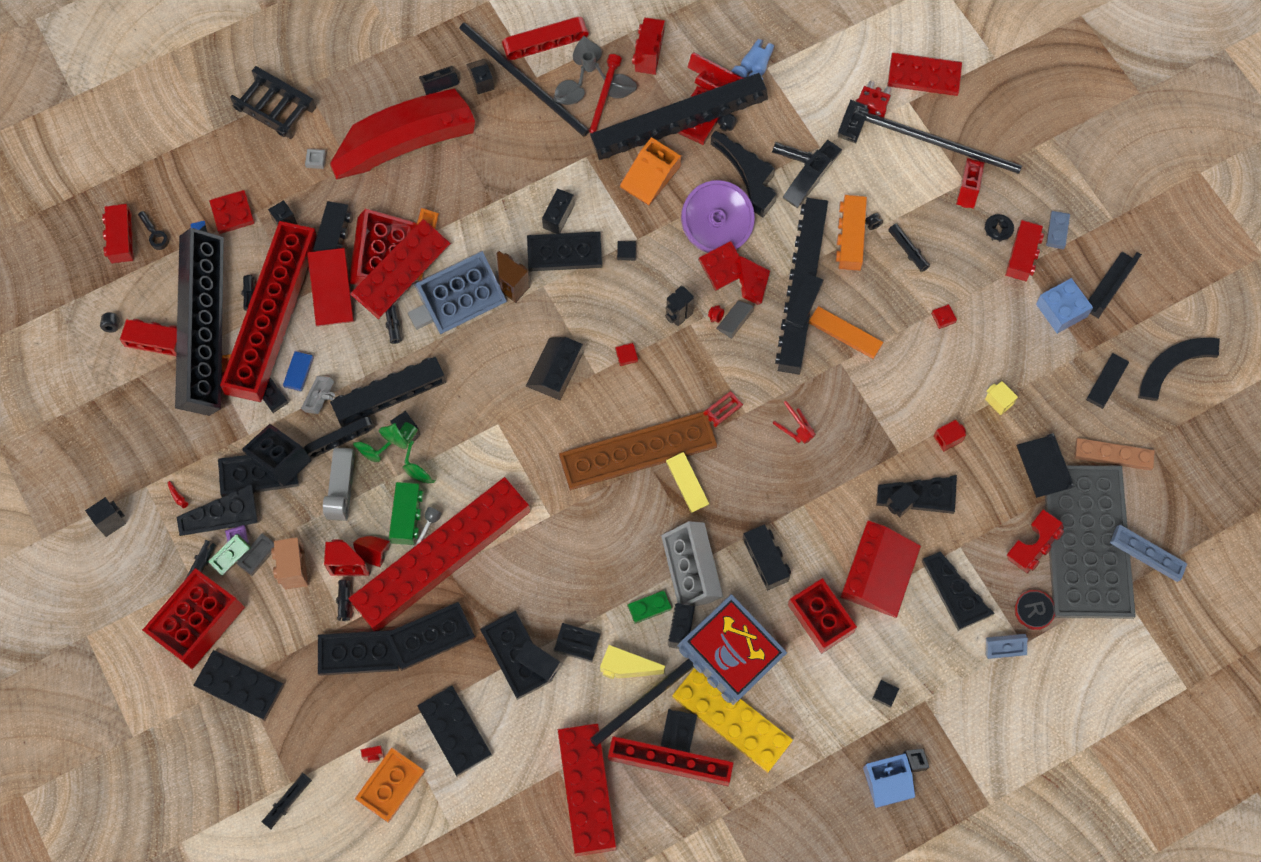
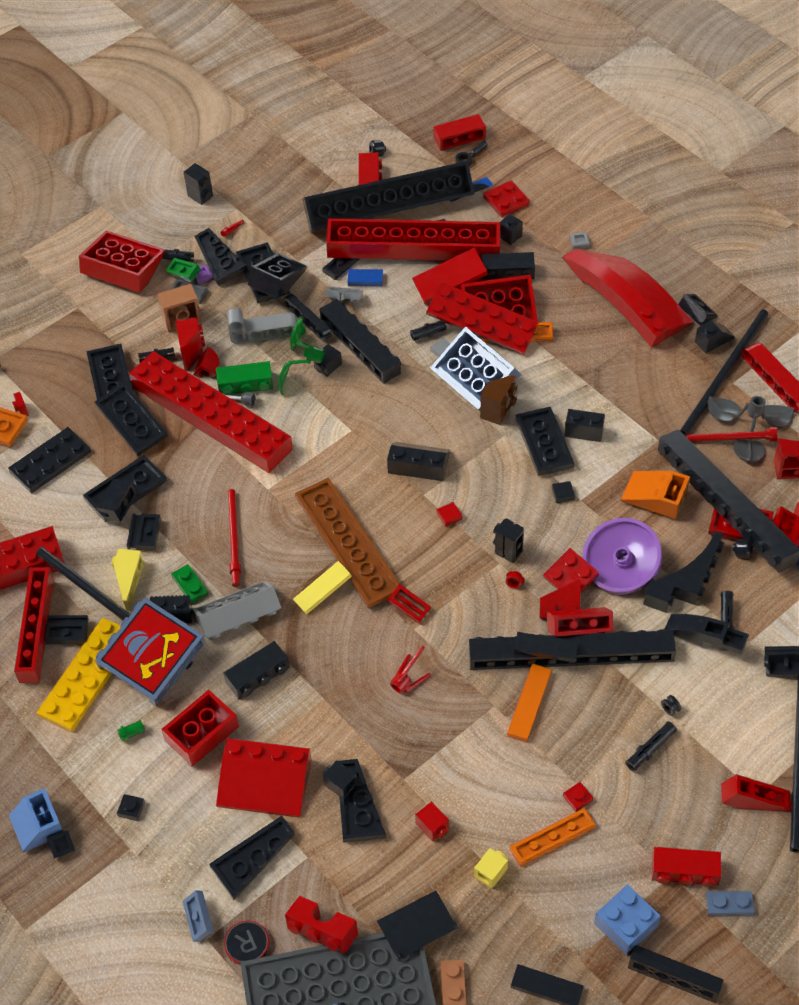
camera: 80 degrees right, 15 degrees down
(239, 685) = (71, 306): black plate -> none
(275, 86) = (634, 206): black fence -> none
(641, 560) = (235, 566): none -> red bar
(735, 319) = (514, 599): dark grey slope -> none
(781, 268) = (580, 621): none -> red brick
(806, 683) = (131, 730): none -> green pin
(852, 232) = (649, 685): orange brick -> none
(977, 345) = (552, 837): none -> orange tile
(1004, 223) = (713, 829): black gear -> none

